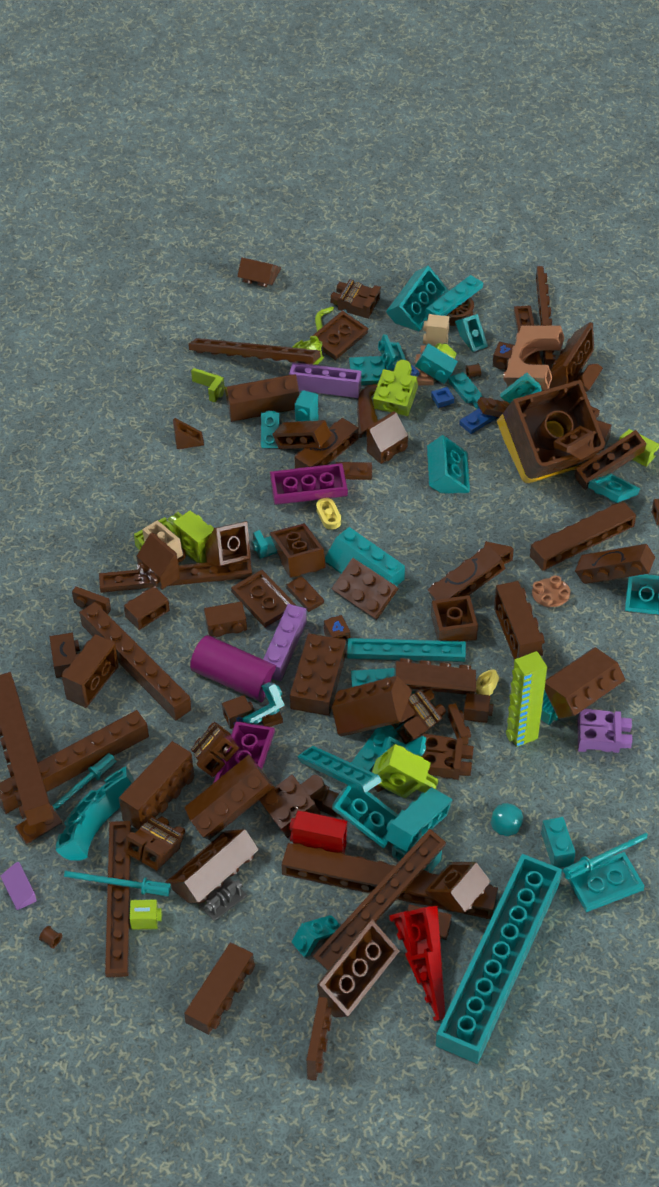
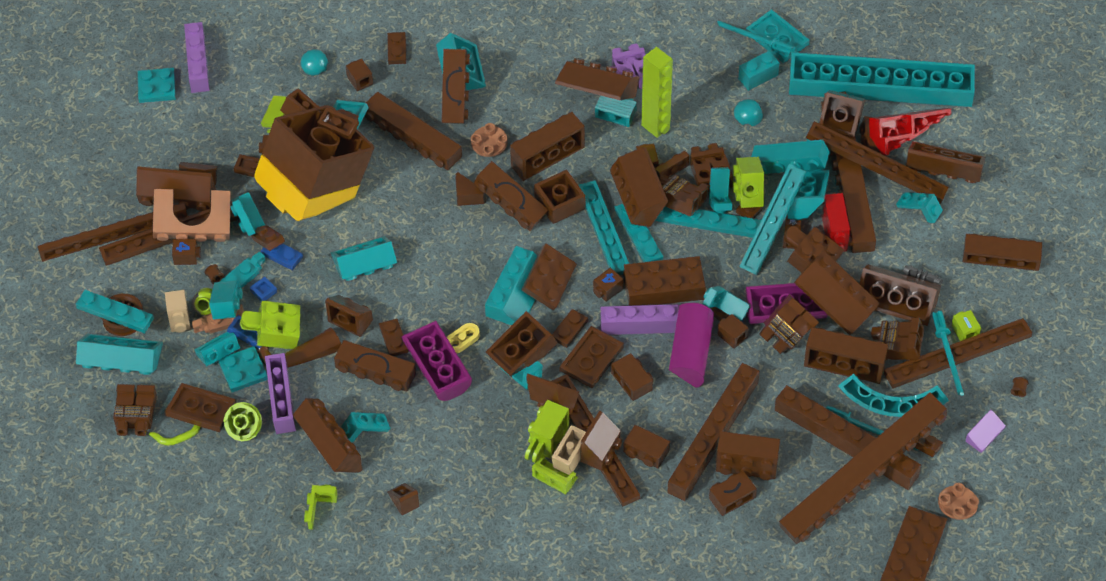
camera: 110 degrees left, 5 degrees up
(85, 598) = (660, 489): reddish brown plate -> none
(258, 271) = (117, 518): reddish brown slope -> none
(260, 351) = (263, 468): reddish brown plate -> none
(301, 434) = (374, 382): reddish brown brick -> none
(306, 407) = (338, 391): teal brick -> none
(319, 1039) = (1014, 168): reddish brown plate -> none
(370, 705) = (697, 217): reddish brown slope -> none
(472, 332) = (153, 289): teal slope -> none
(487, 682) = (615, 152): light yellow plate -> none

